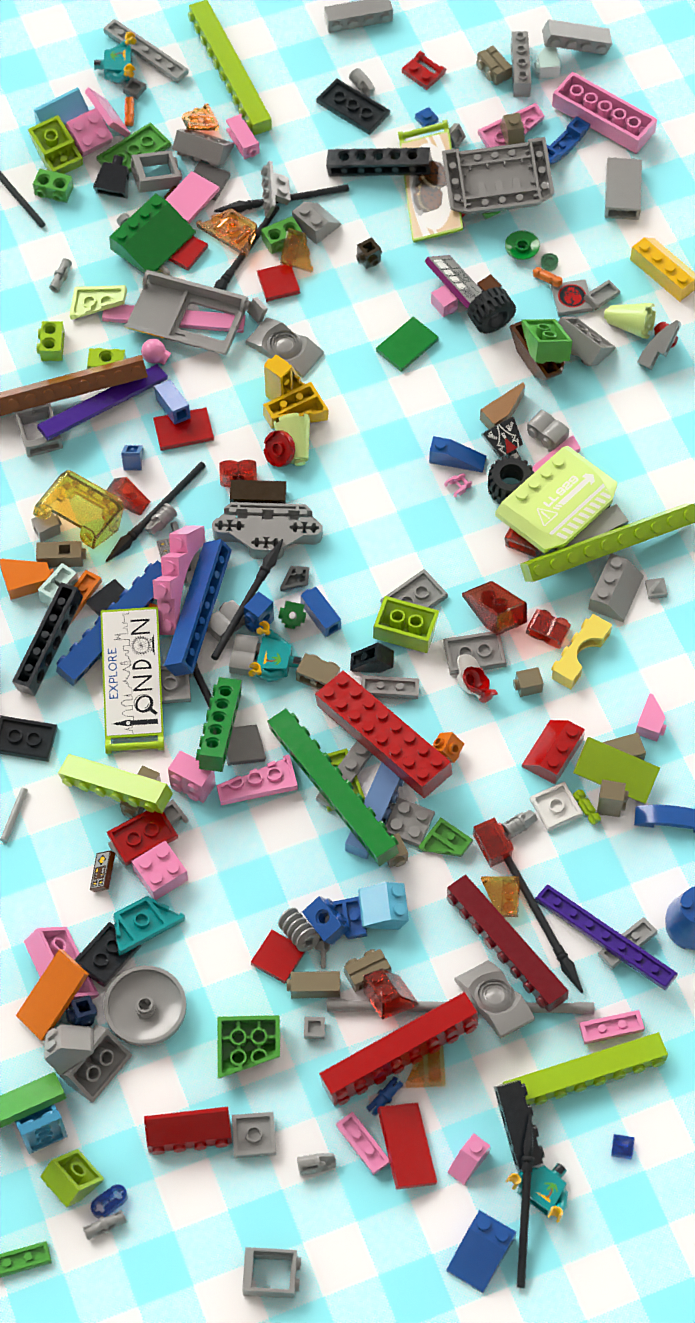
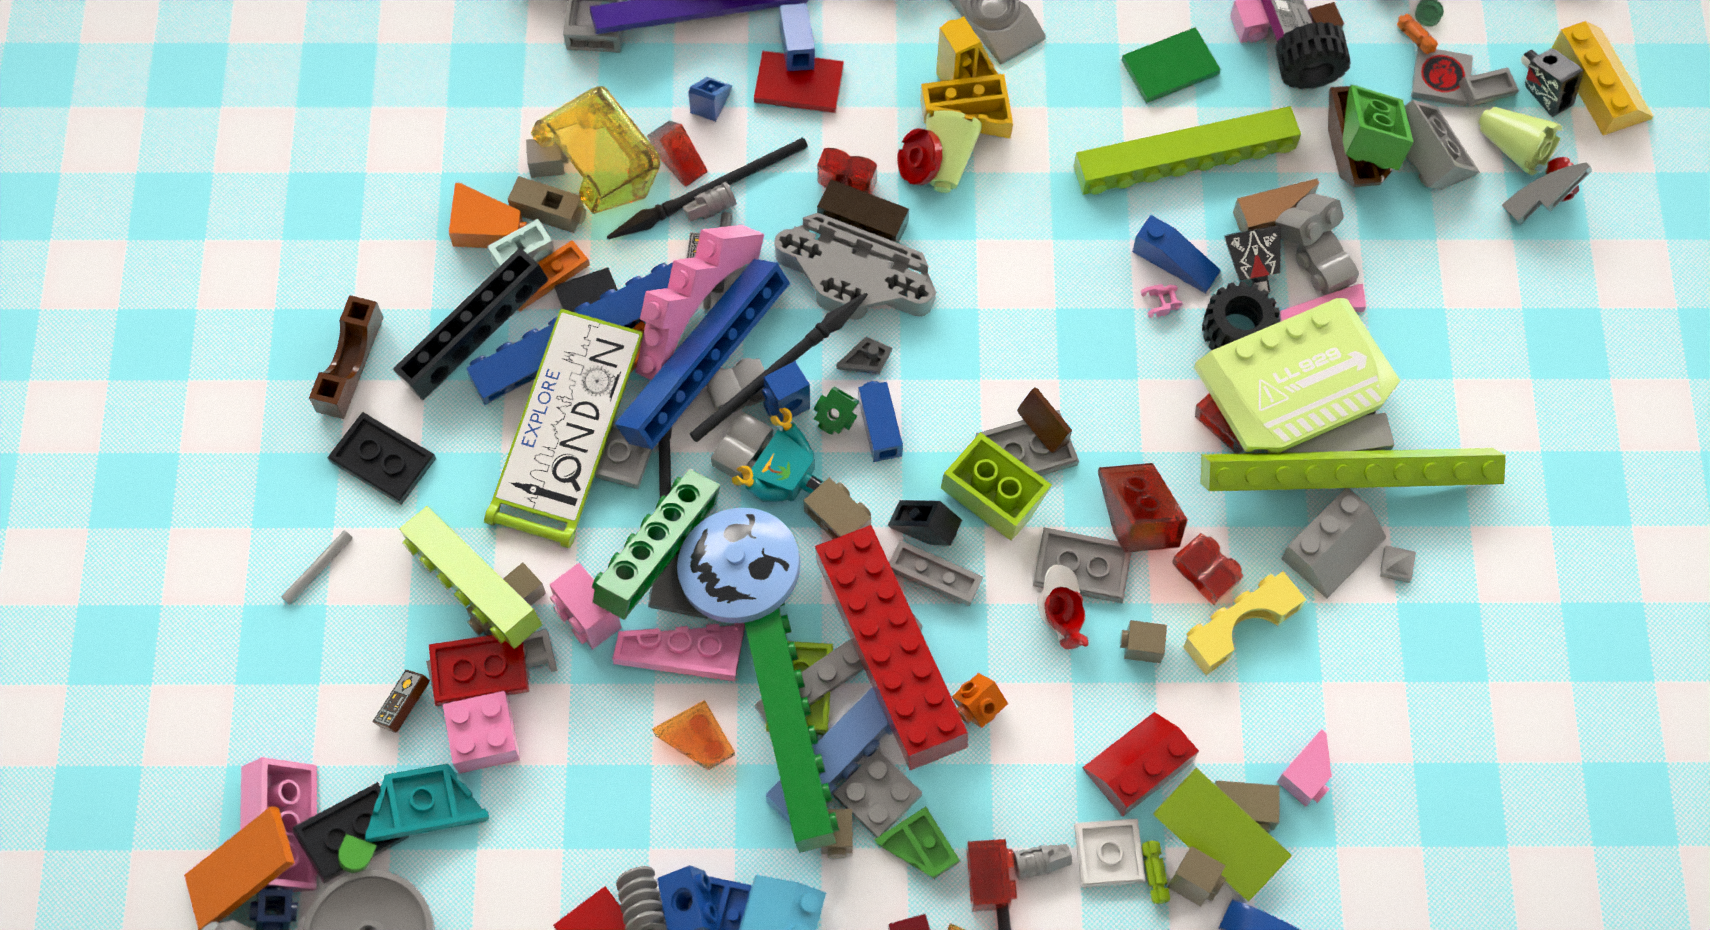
camera: 20 degrees right, 5 degrees up
(117, 962) = (355, 854): none -> bright green tile
(273, 720) = (738, 565): none -> light blue dish
(289, 827) = (696, 736): none -> clear orange wing
(419, 577) = (1044, 421): none -> reddish brown slope
(437, 392) = (1186, 150): none -> lime brick
(528, 407) = (1310, 219): none -> light grey brick
(638, 278) = (1552, 79): none -> black torso

